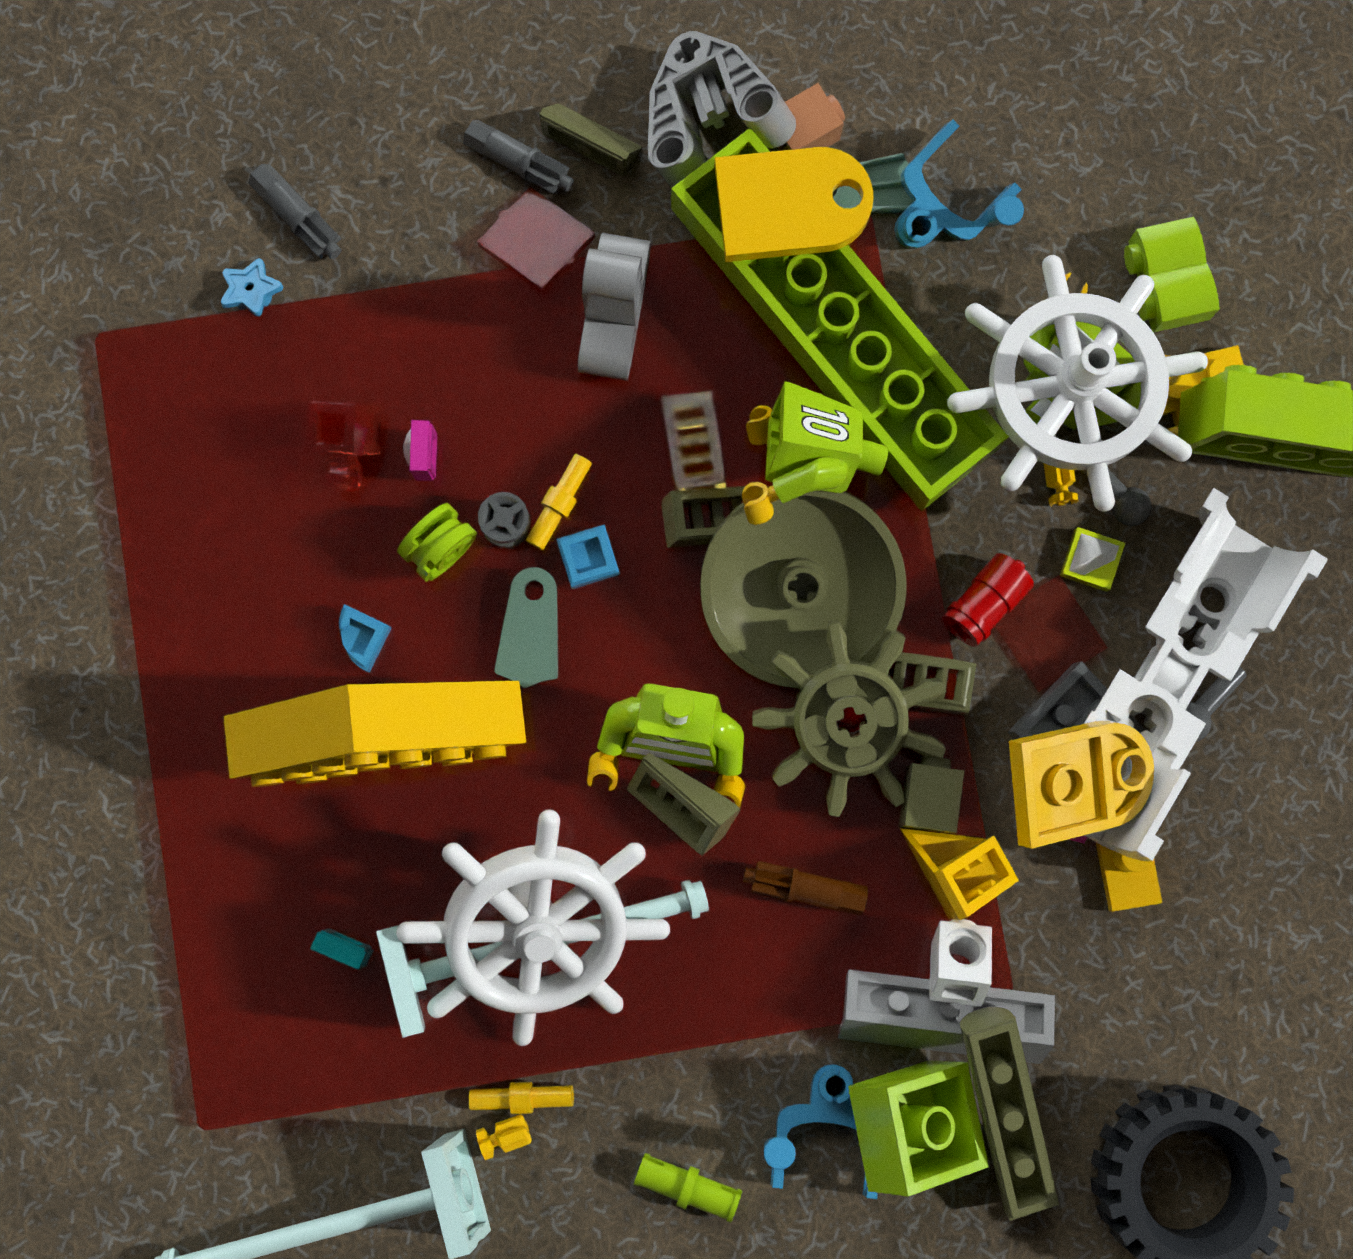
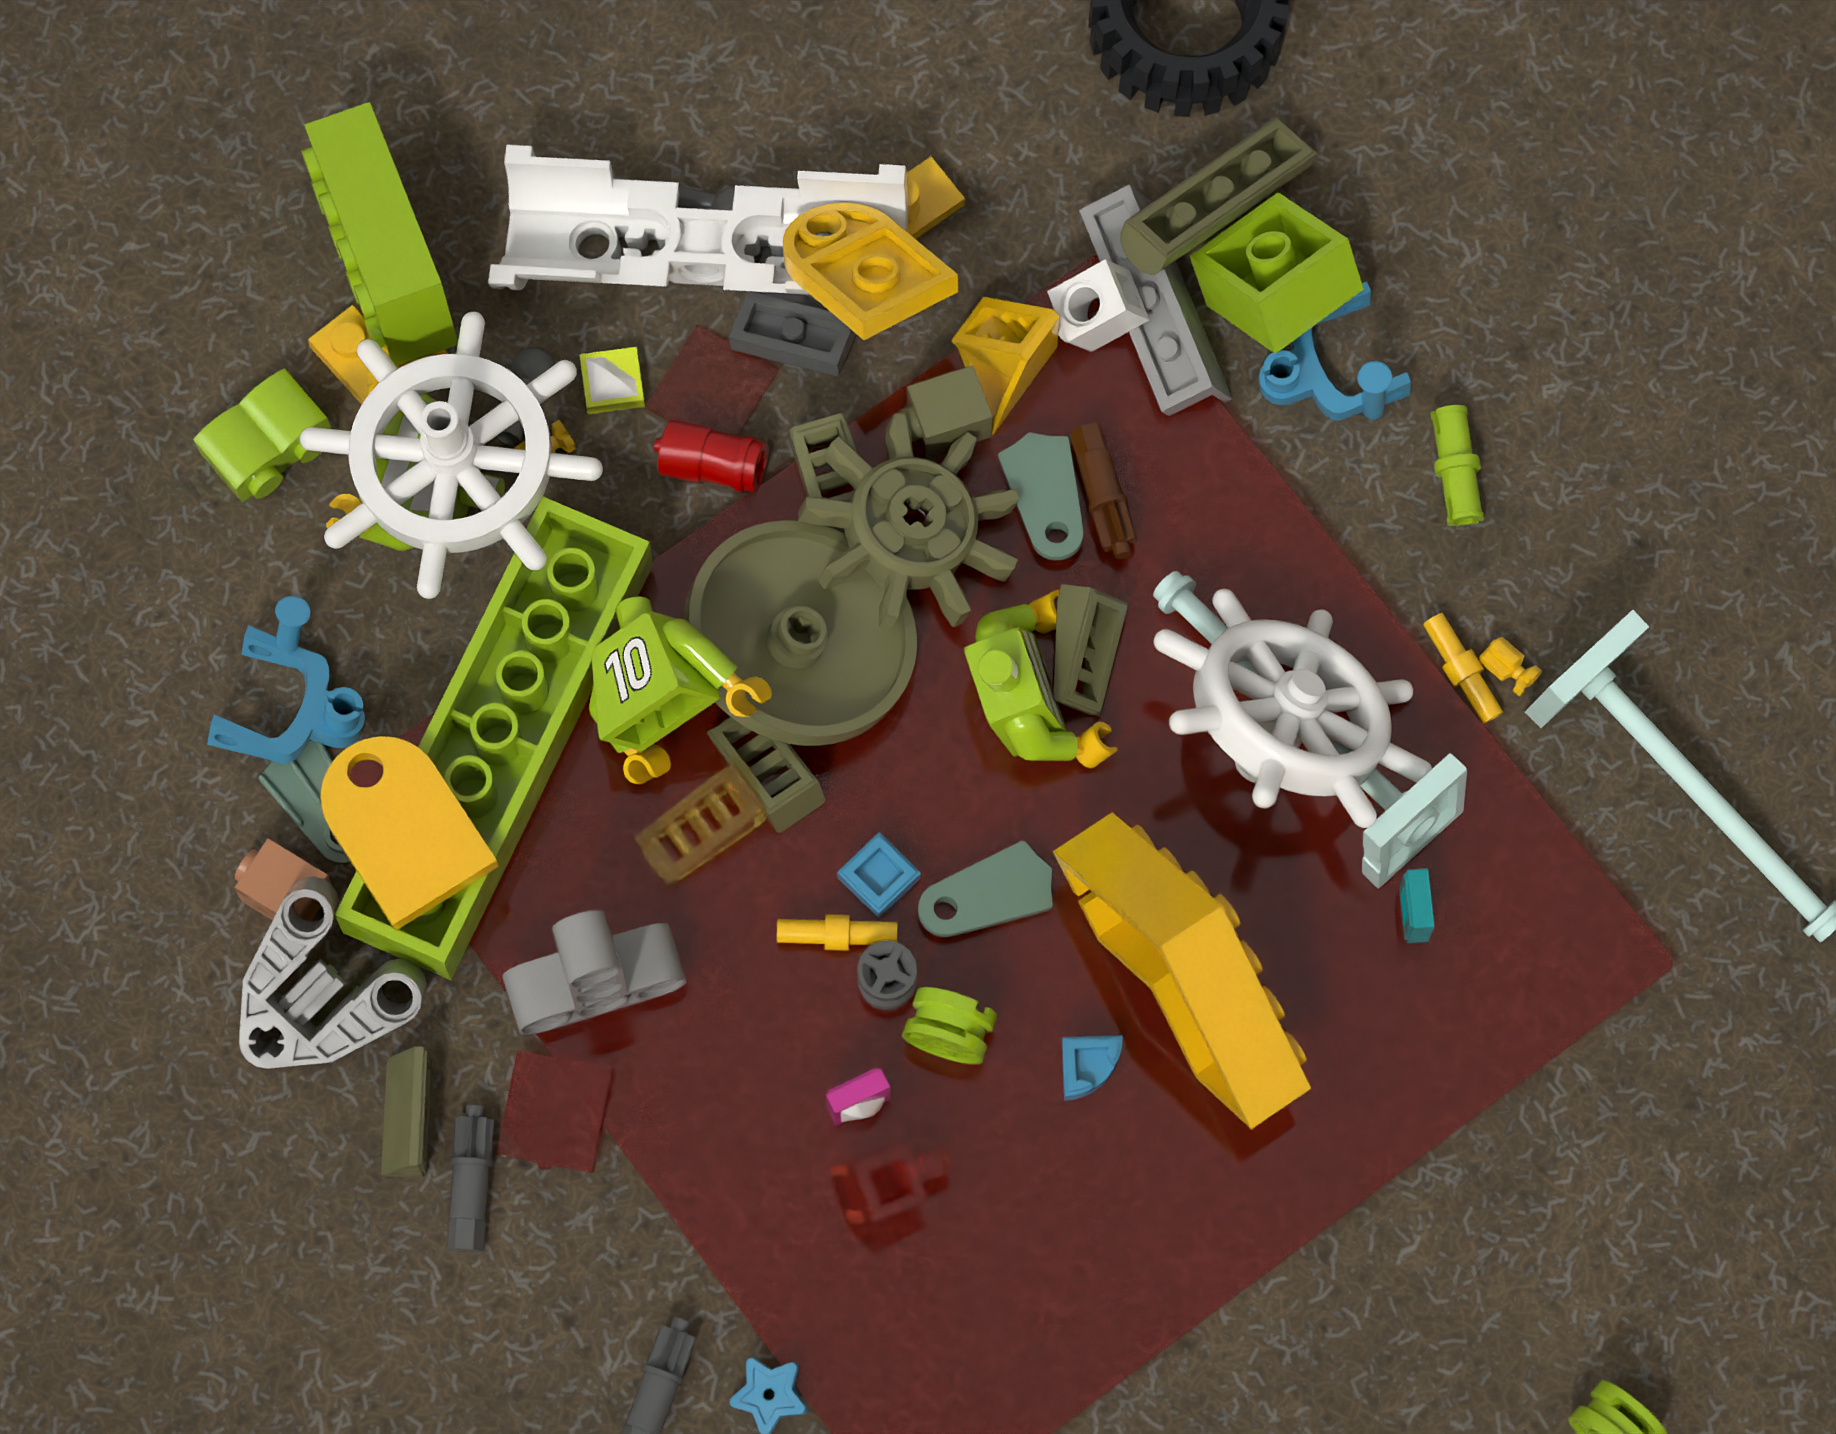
camera: 115 degrees left, 10 degrees down
(828, 842) = (1047, 490): none -> sand green piece

